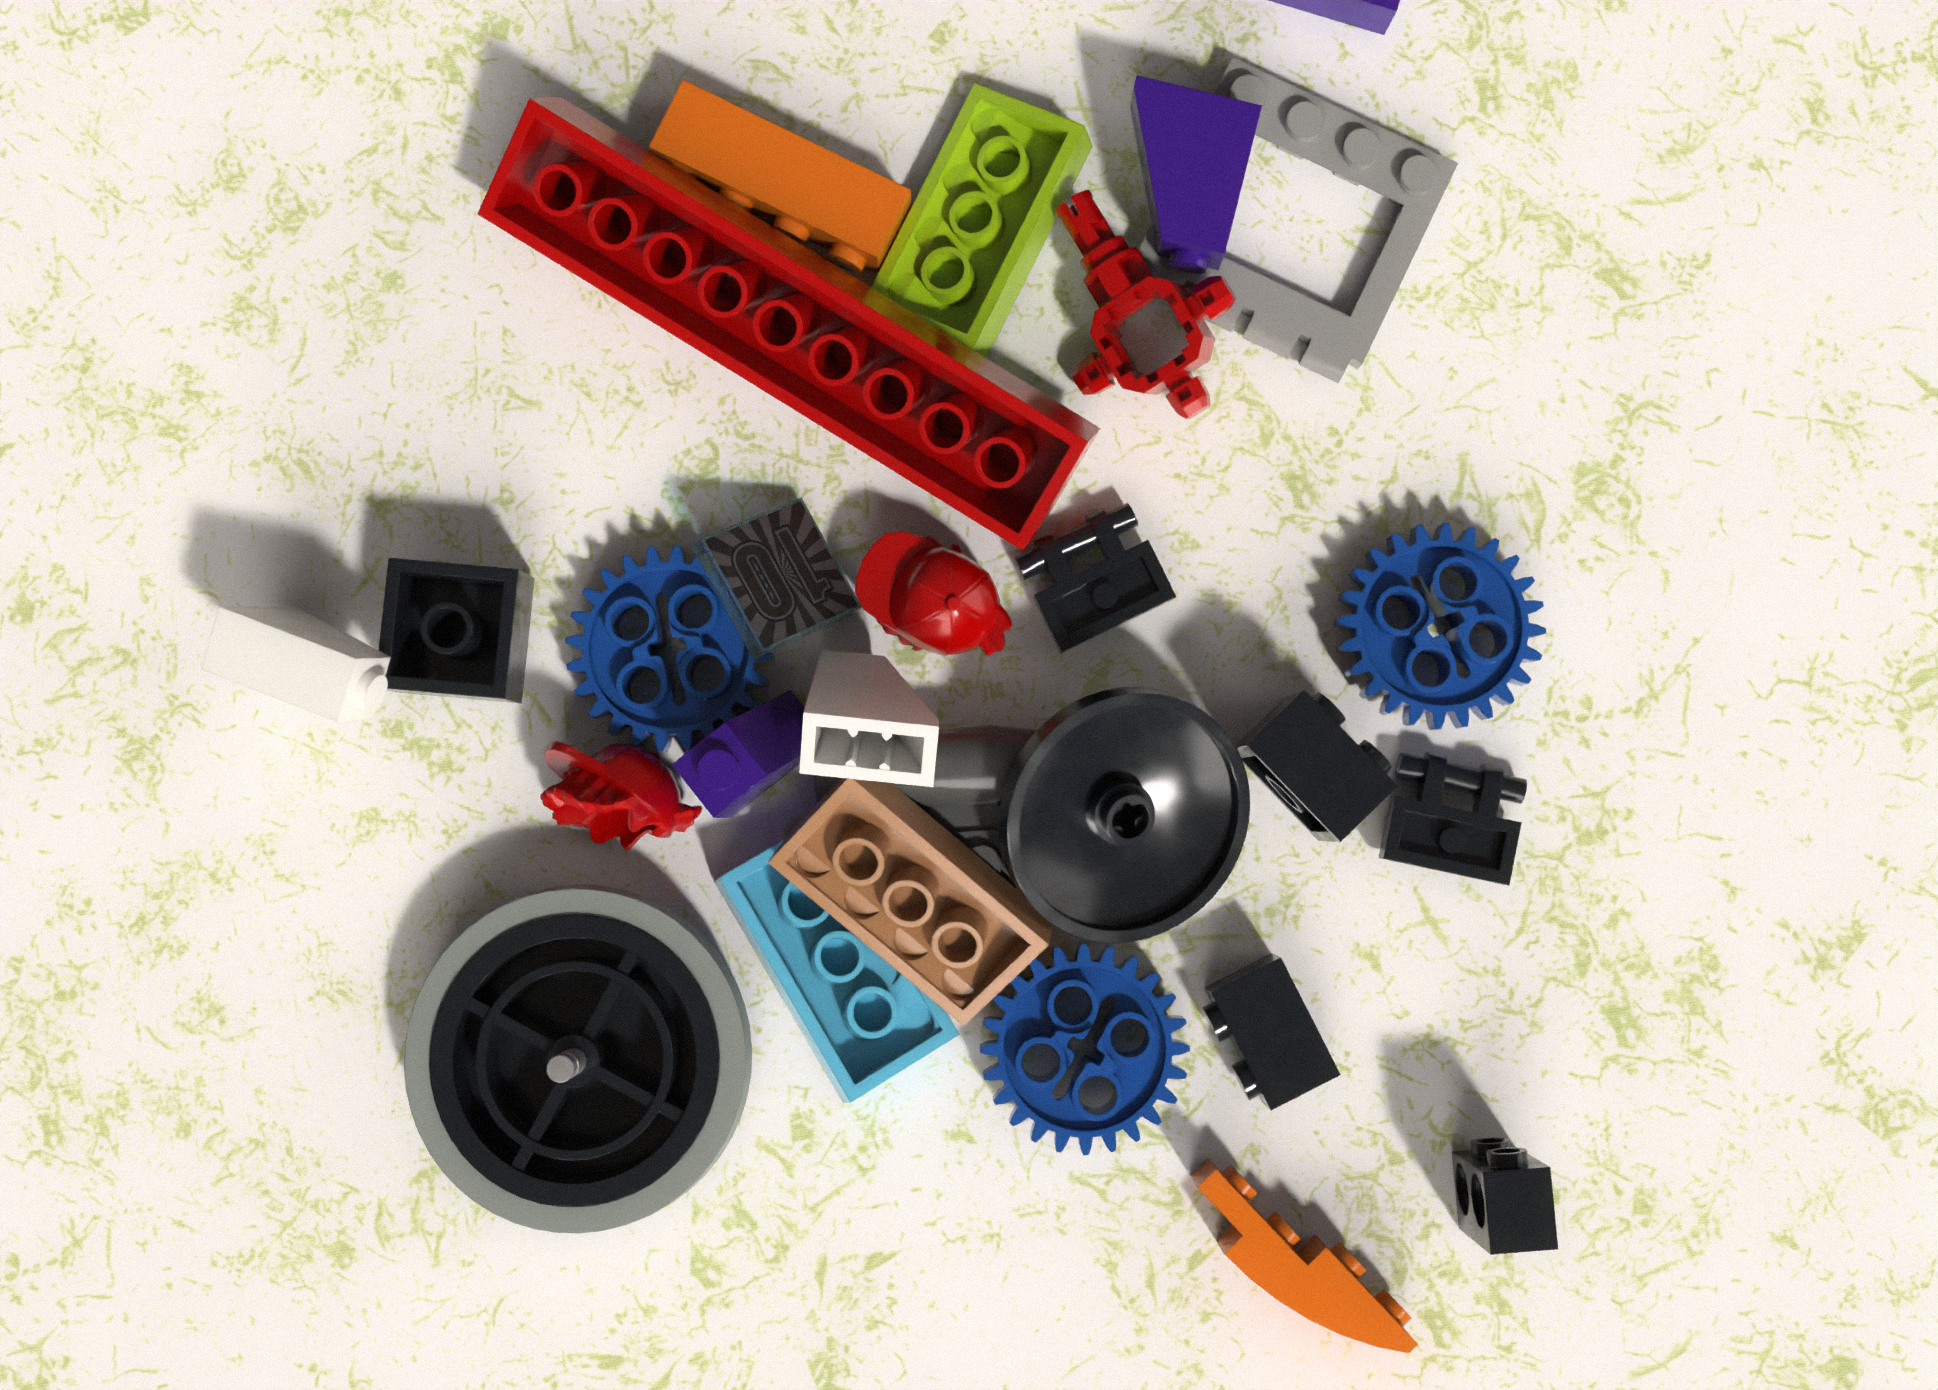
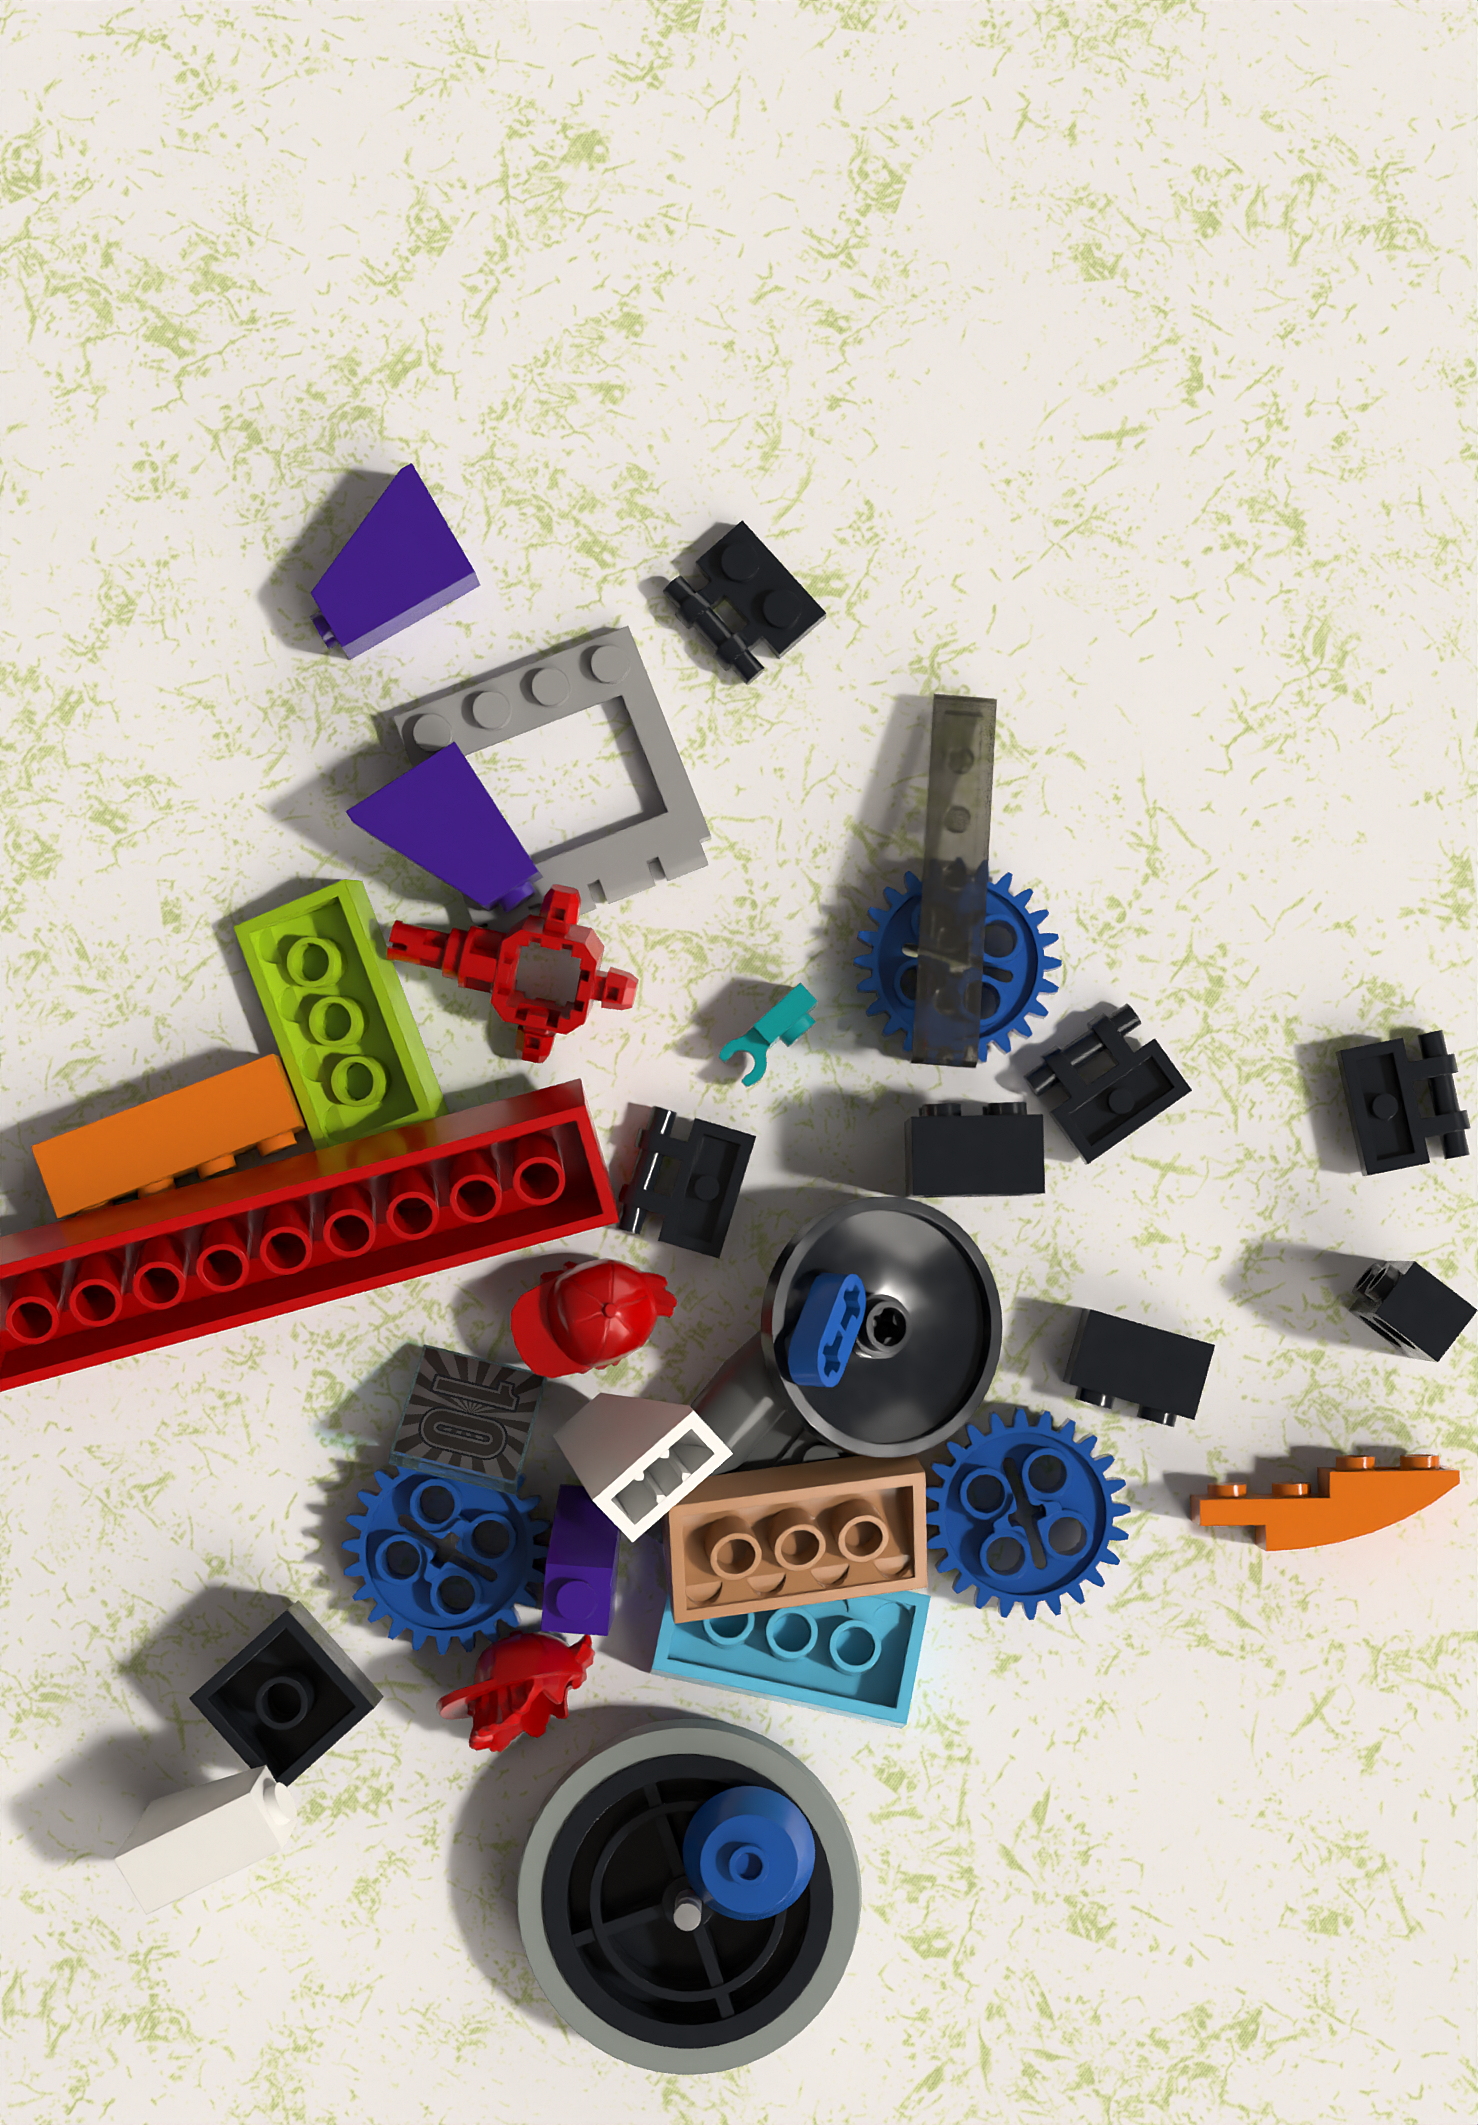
camera: 45 degrees left, 0 degrees up
(649, 1072) = (748, 1853): none -> blue cone
(1087, 773) = (827, 1330): none -> blue beam
(1277, 539) = (784, 1022): none -> teal plate
(1499, 567) = (954, 882): none -> clear smoke tile
(1571, 233) = (758, 590): none -> black plate
(1631, 1038) = (1385, 1105): none -> black plate

